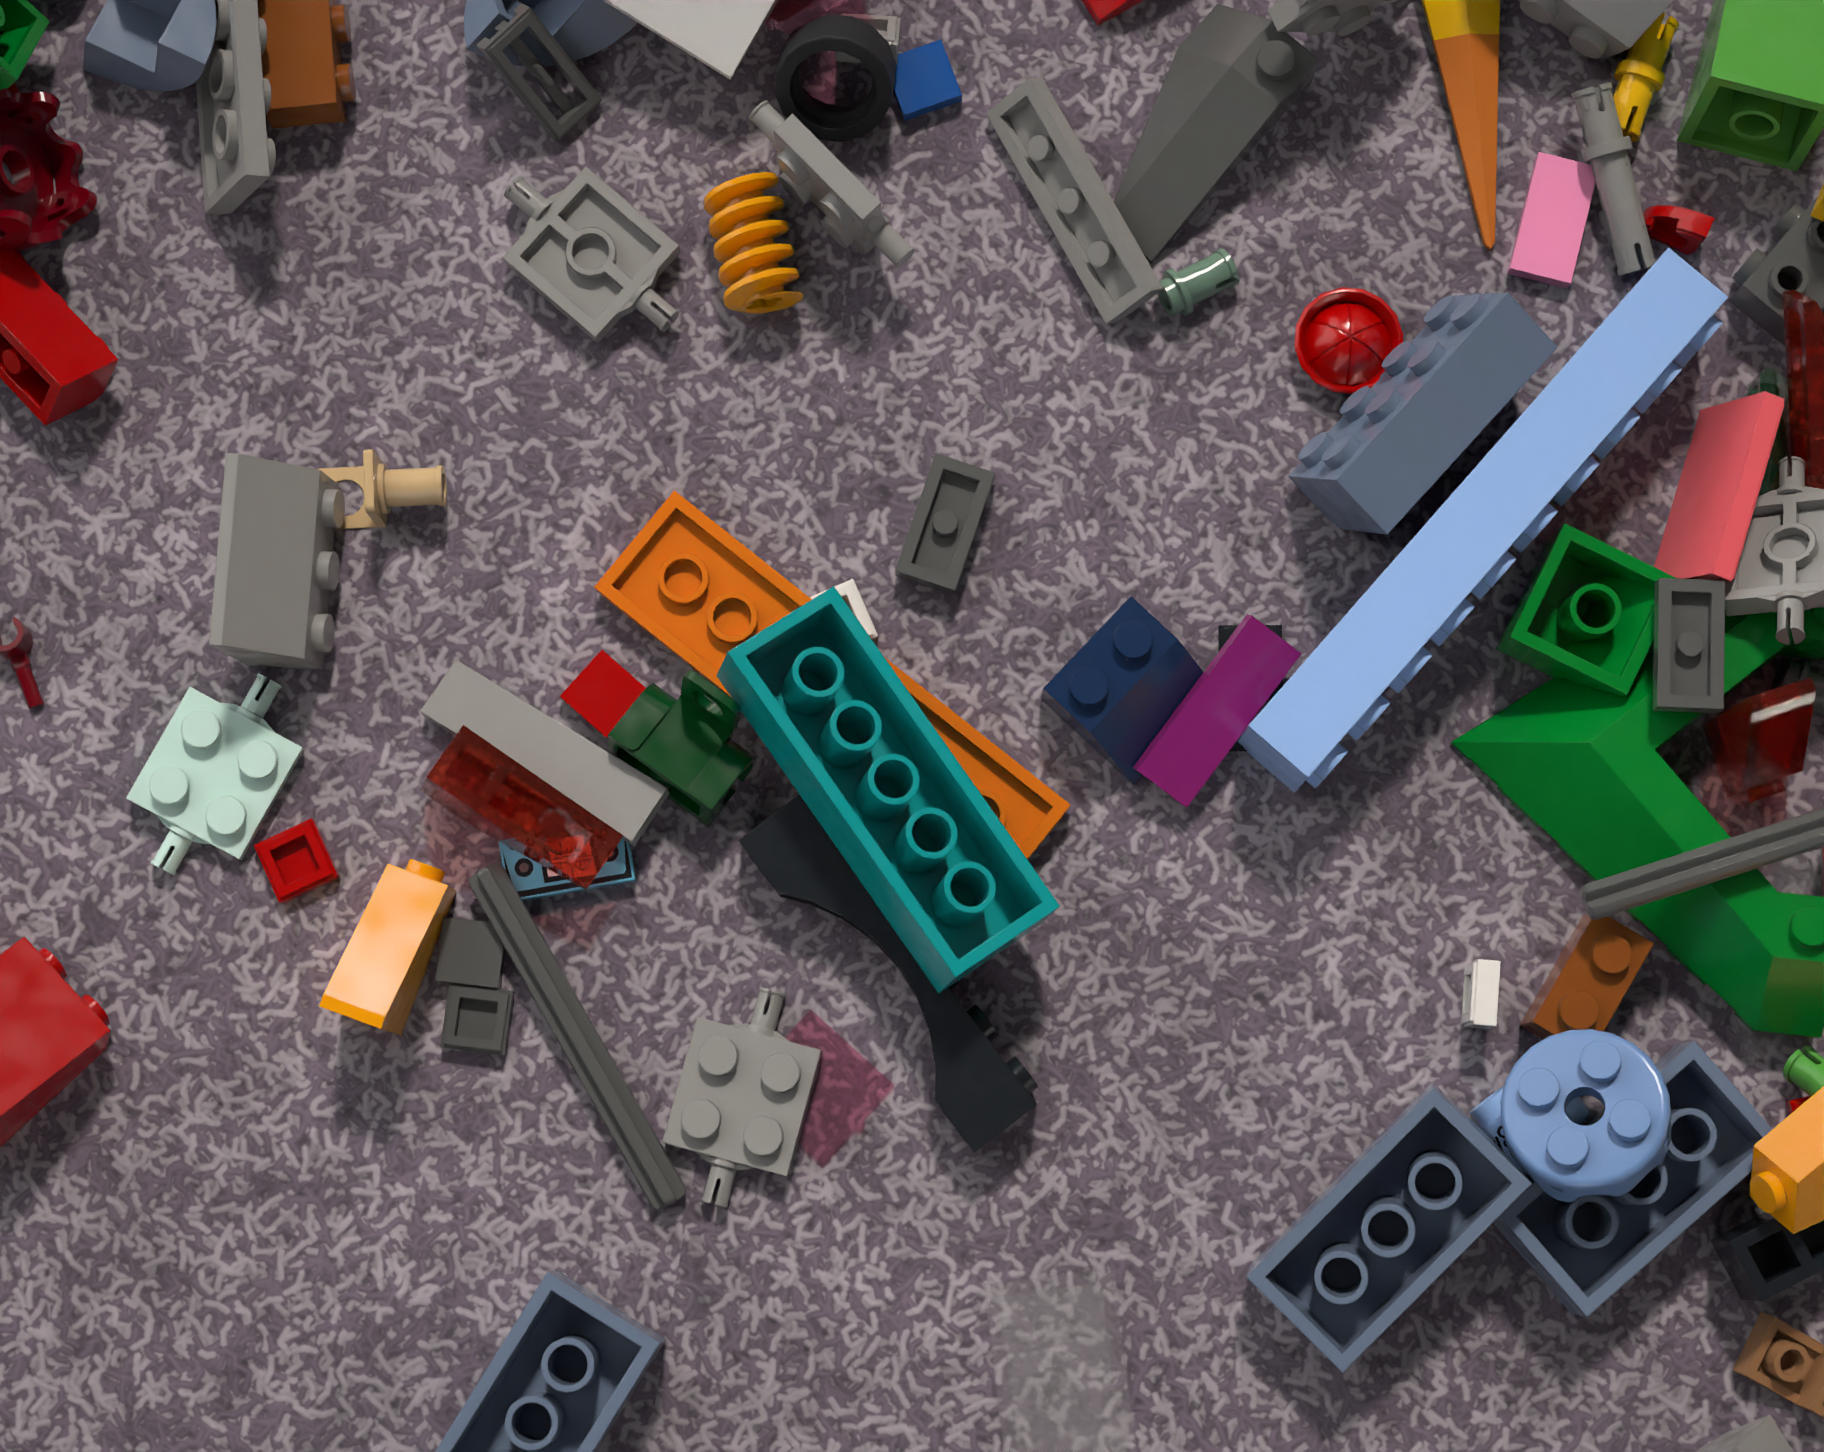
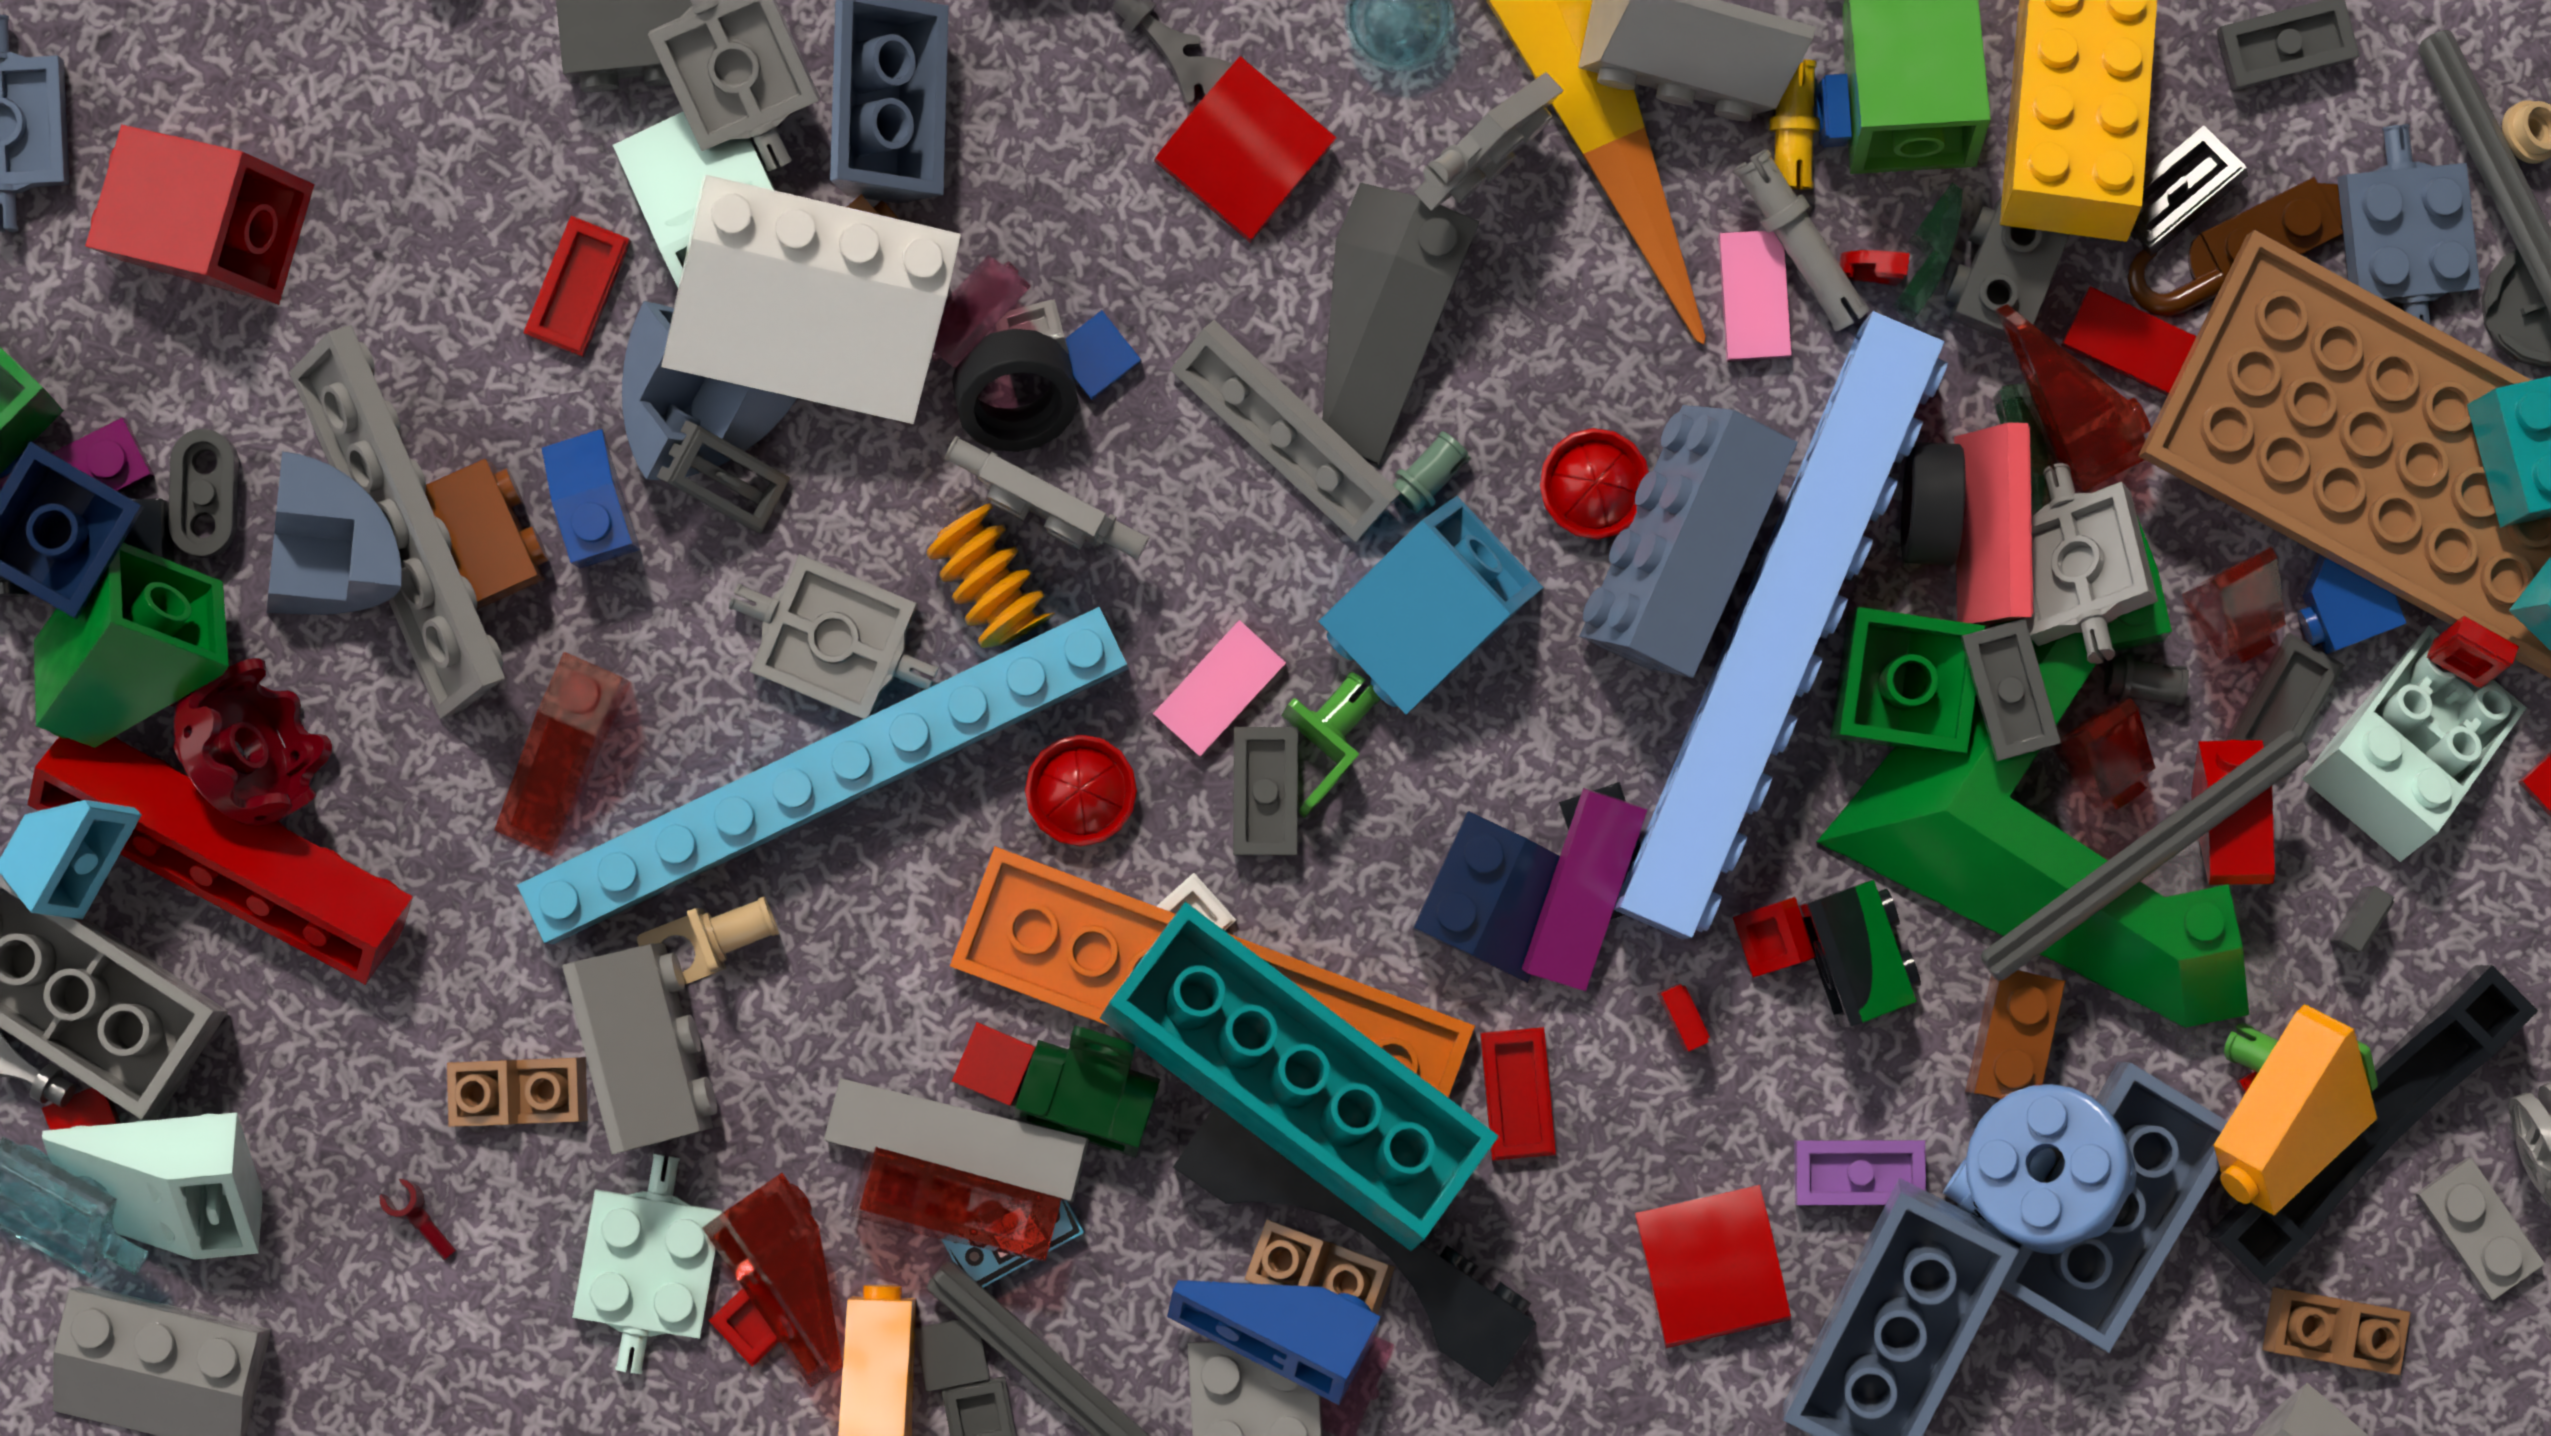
camera: 20 degrees left, 5 degrees up
(149, 574) = (517, 1091): none -> medium nougat slope
(305, 273) = (560, 752): none -> clear red slope
(336, 806) = (781, 1265): none -> clear red slope
(409, 62) = (588, 500): none -> blue slope
(535, 374) = (822, 777): none -> medium azure brick
(772, 466) = (1080, 790): none -> red hat
(796, 1030) = (1286, 1328): none -> blue slope
(845, 992) = (1301, 1259): none -> medium nougat slope
(934, 417) = (1219, 688): none -> bright pink tile
(1021, 488) = (1330, 727): none -> bright green bracket
(1090, 885) = (1518, 1093): none -> red tile
(1155, 399) = (1429, 605): none -> dark azure slope
(1224, 1110) = (1713, 1266): none -> red slope
(1272, 862) = (1684, 1017): none -> red tile
(1383, 815) = (1774, 937): none -> red tile
(1390, 1063) = (1855, 1170): none -> medium lavender plate
(1459, 853) = (1859, 953): none -> black slope
(1480, 994) = (1919, 1077): white tile -> none
(1664, 456) = (1933, 503): none -> black tyre
(1681, 72) = (1833, 110): none -> blue tile
(1737, 221) = (1936, 240): none -> clear green slope

